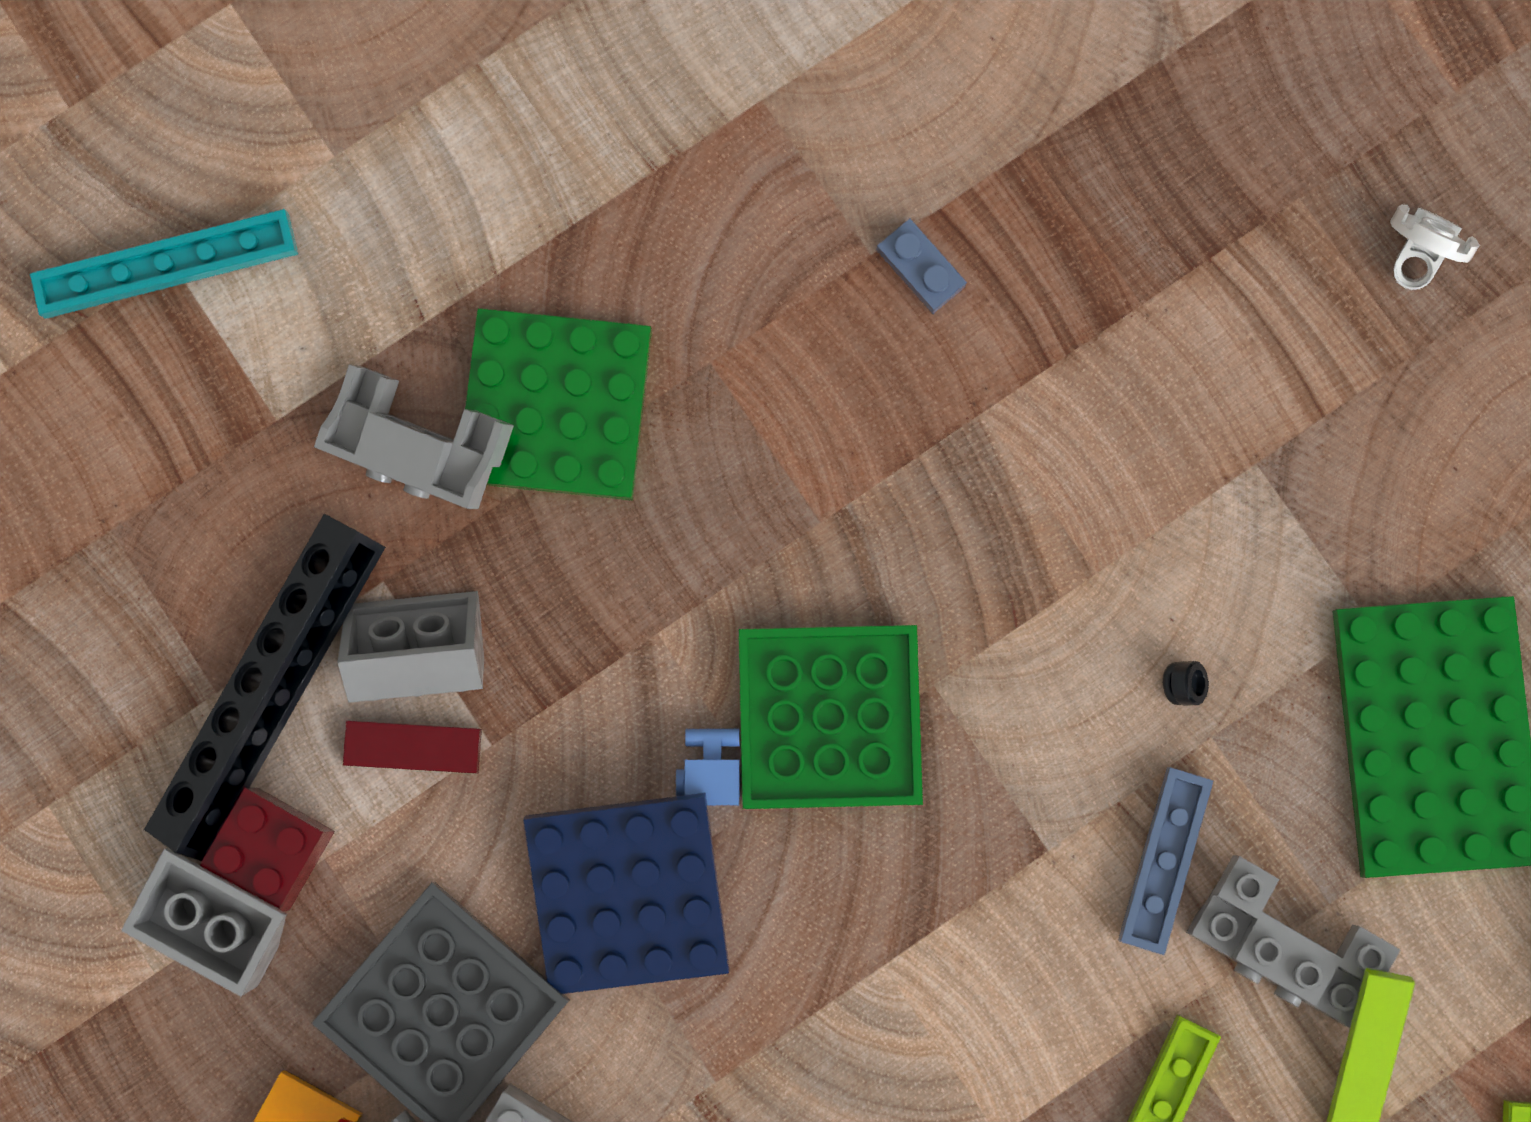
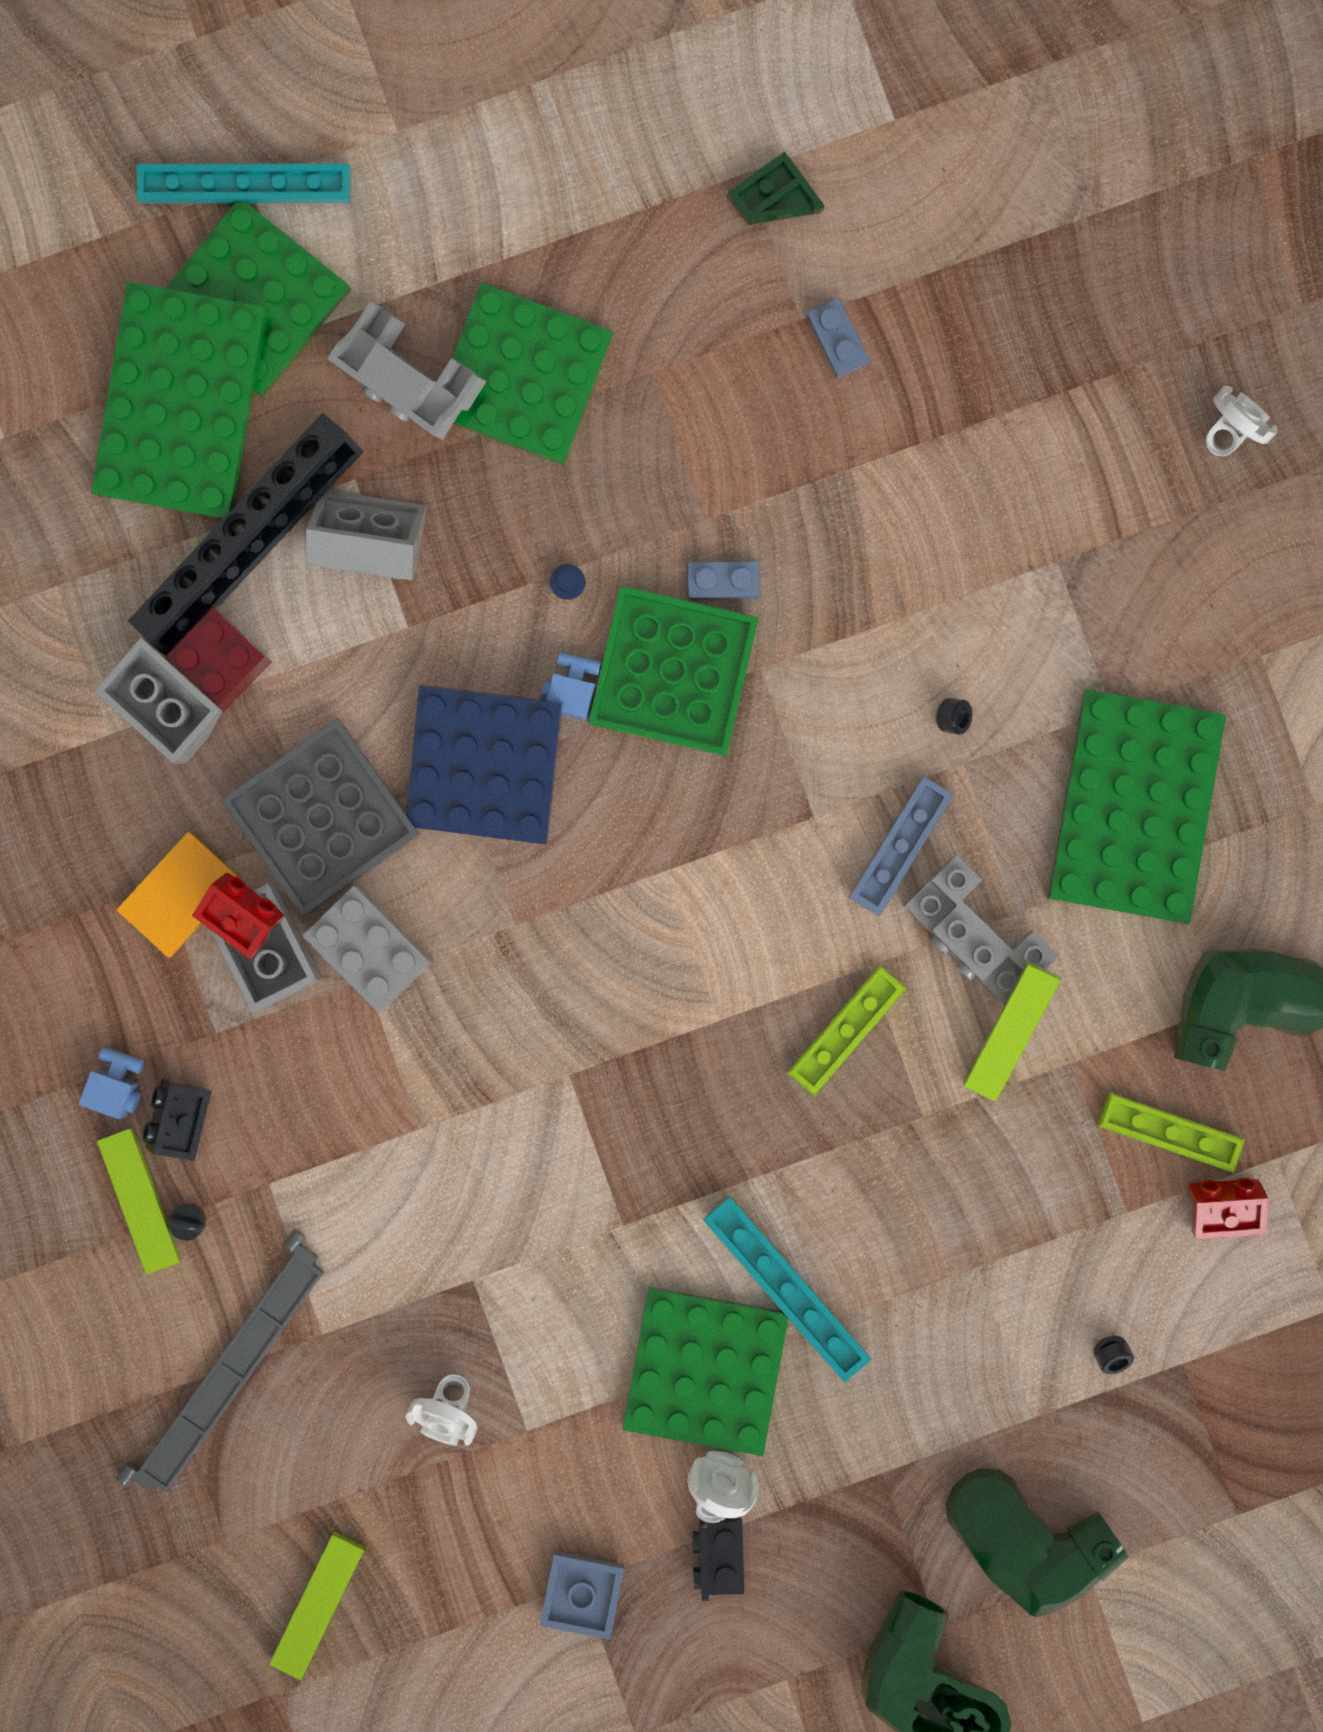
camera: 10 degrees right, 5 degrees up
(146, 543) = (179, 400): none -> green plate
(204, 396) = (262, 266): none -> green plate
(412, 747) = (346, 612): dark red tile -> none
(673, 640) = (567, 582): none -> dark blue plate
(802, 116) = (775, 194): none -> dark green wing
(861, 590) = (723, 580): none -> sand blue plate

